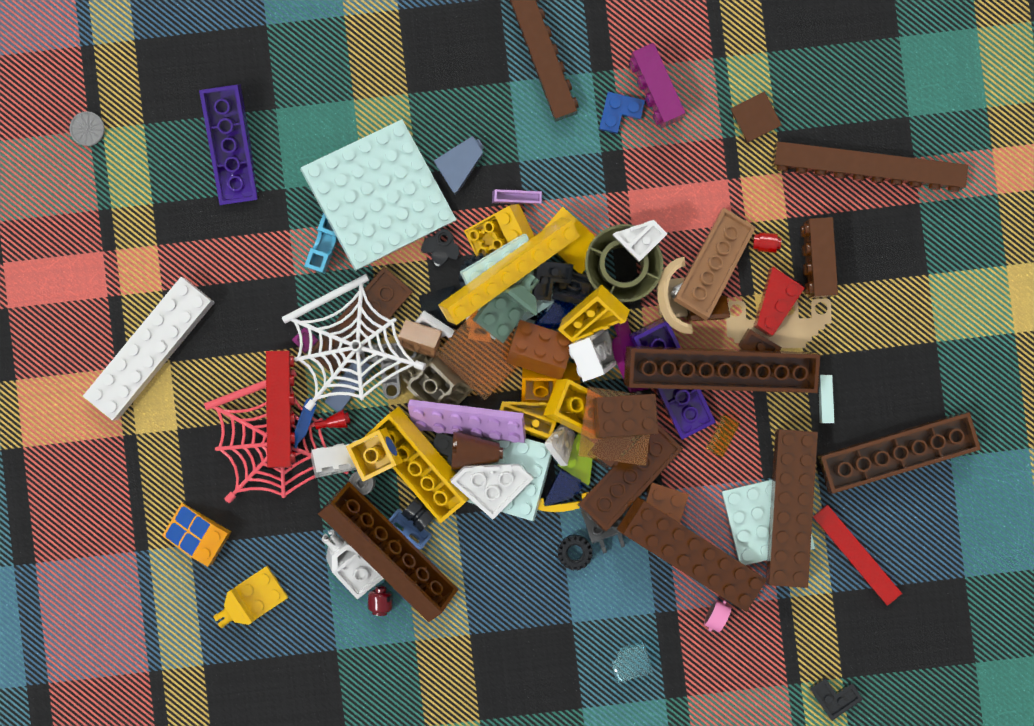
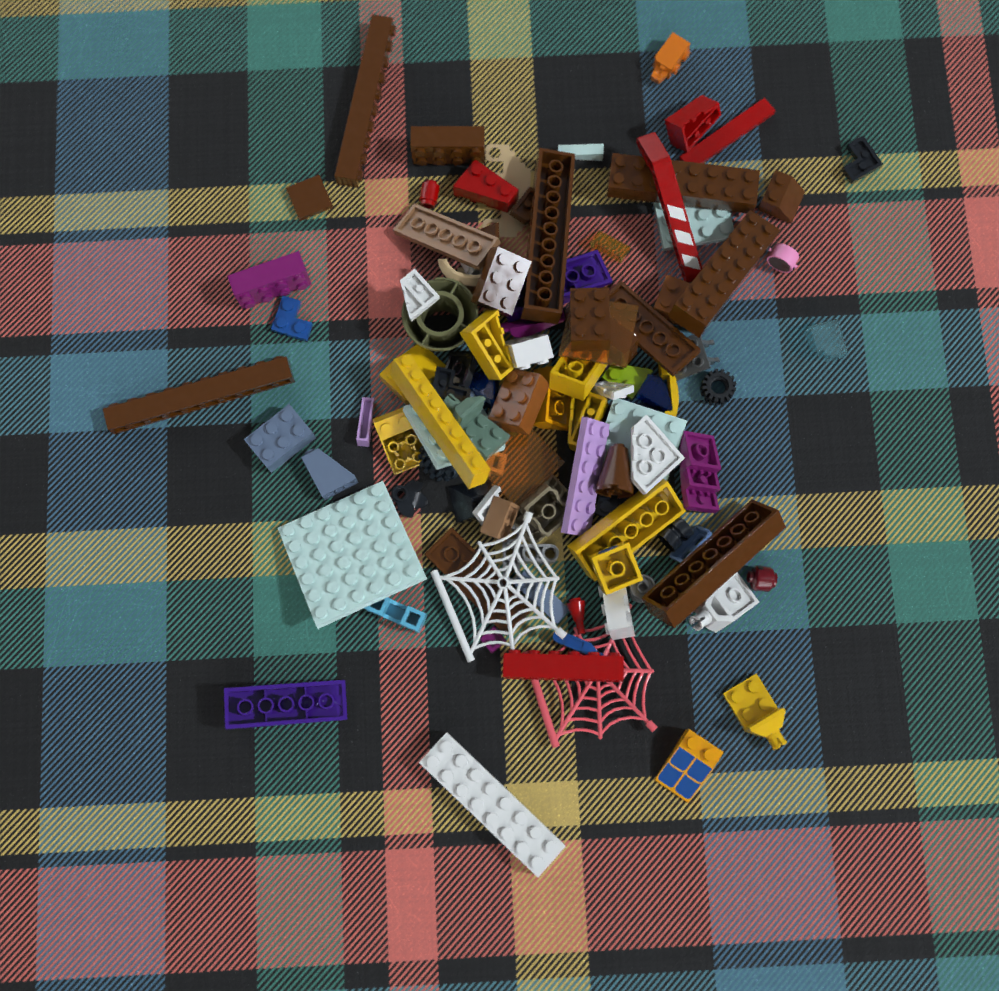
camera: 90 degrees left, 10 degrees down
(87, 128) = (253, 858): light grey wheel -> none
(483, 535) = (699, 472): none -> magenta slope
(492, 112) = (280, 438): none -> sand blue brick
(660, 323) = (501, 281): none -> brick
(763, 495) = (672, 204): none -> red beam
(787, 614) = (782, 197): none -> reddish brown slope
(865, 516) = (692, 122): none -> red wedge
(899, 452) = (632, 82): reddish brown brick -> none
(940, 489) = (670, 57): none -> orange hinge

